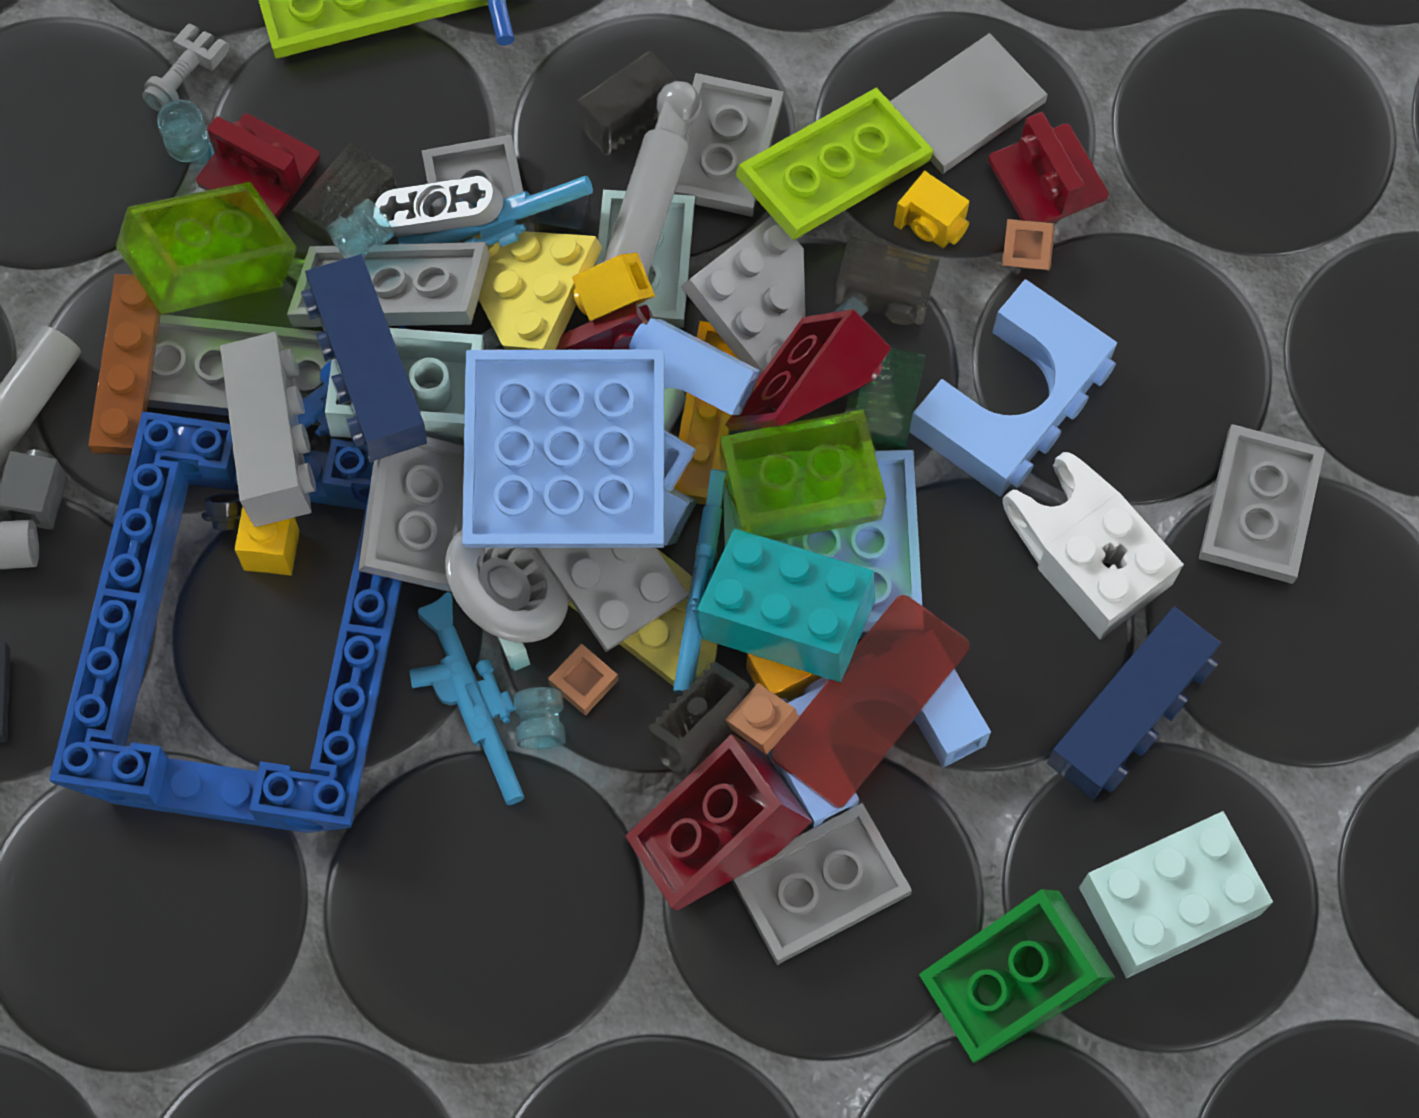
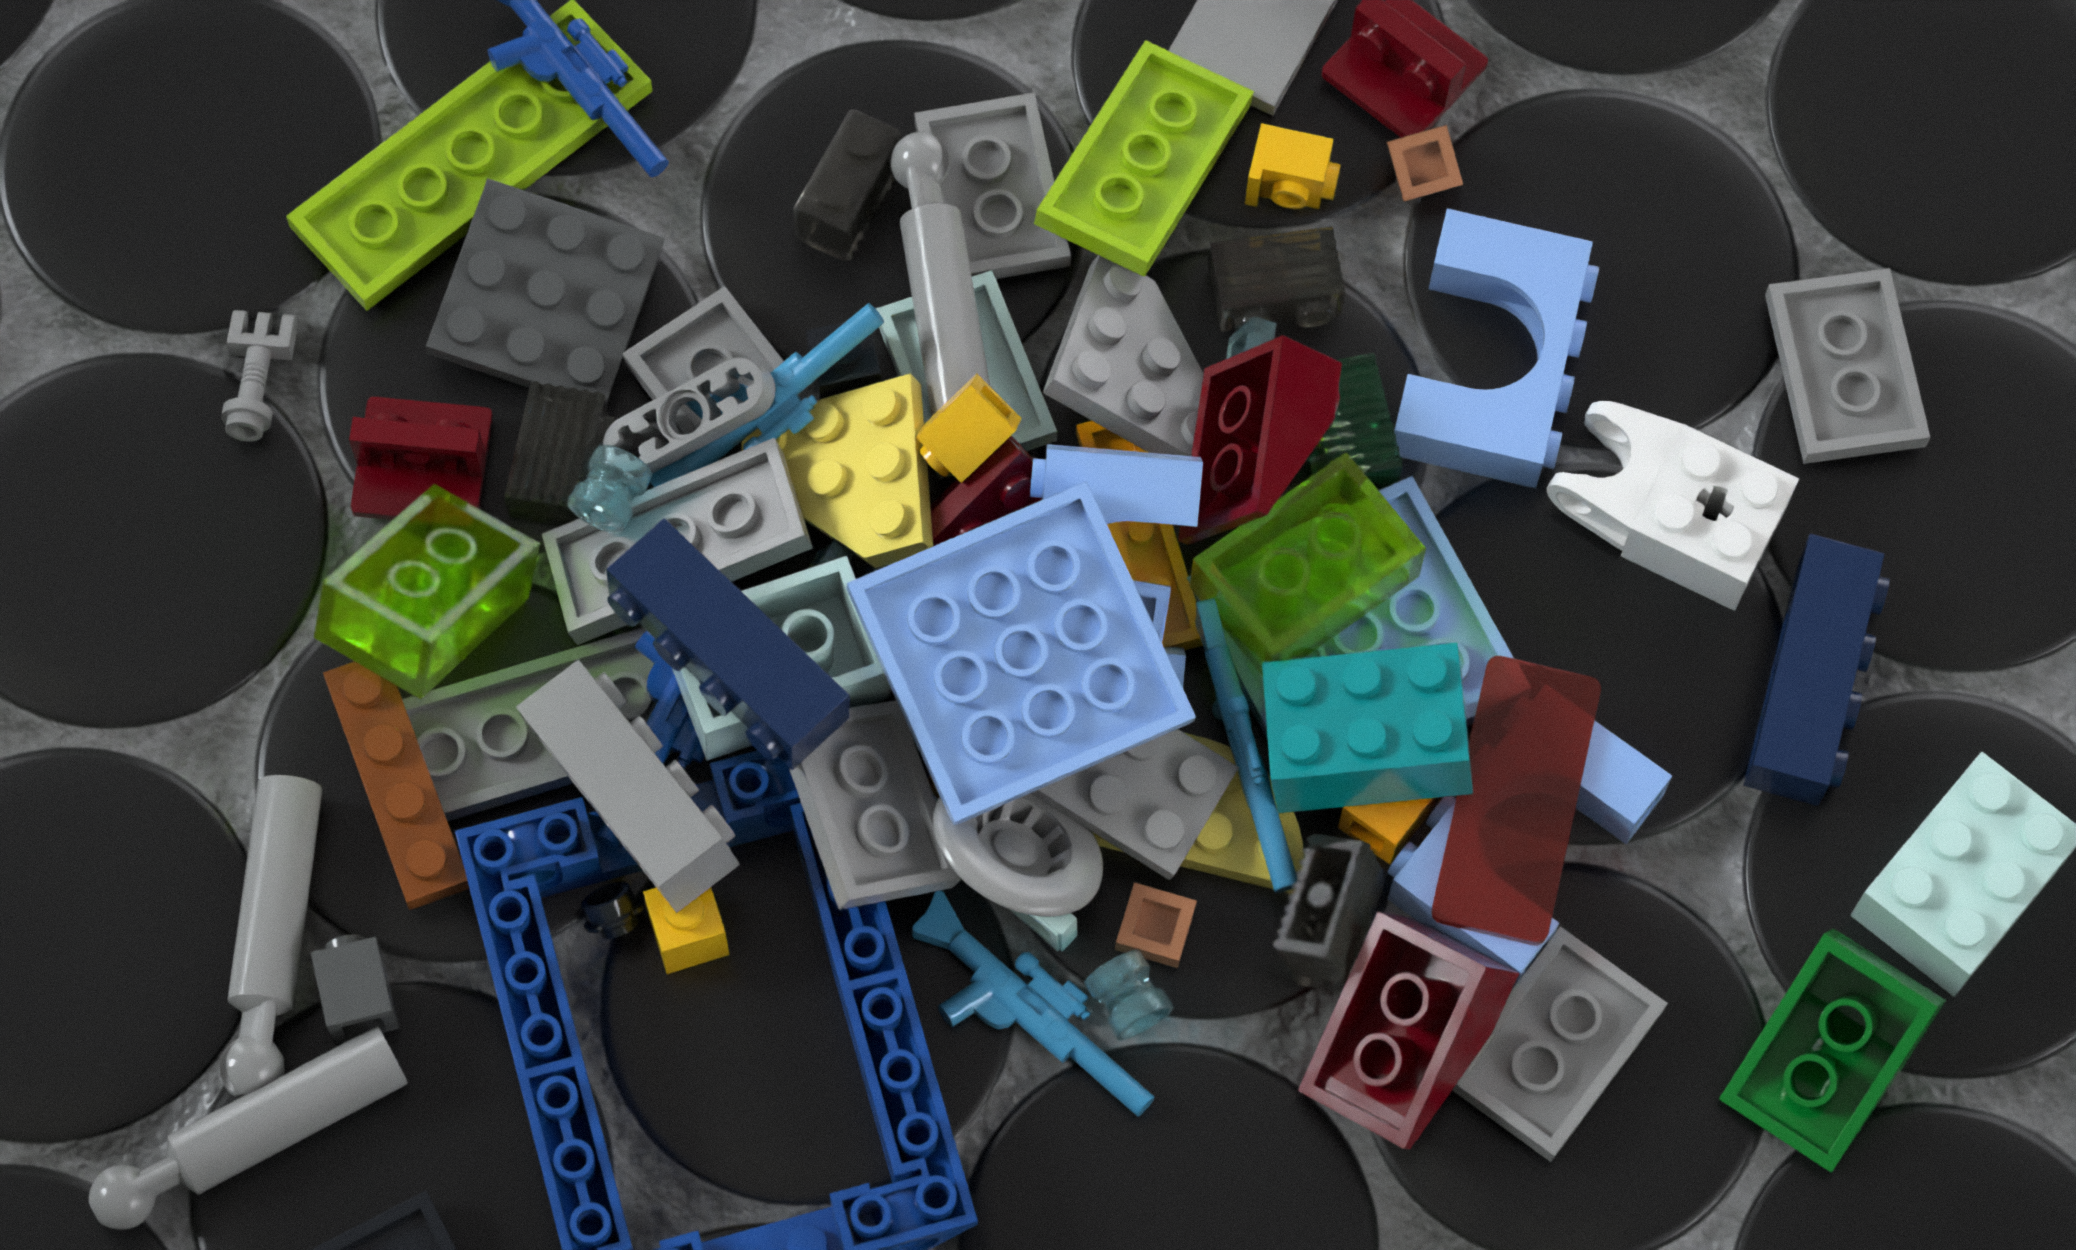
camera: 25 degrees left, 0 degrees up
(183, 130) = (299, 439): clear light blue wheel -> none
(392, 91) = (544, 292): none -> dark grey plate
(762, 718) = (1402, 877): nougat plate -> none

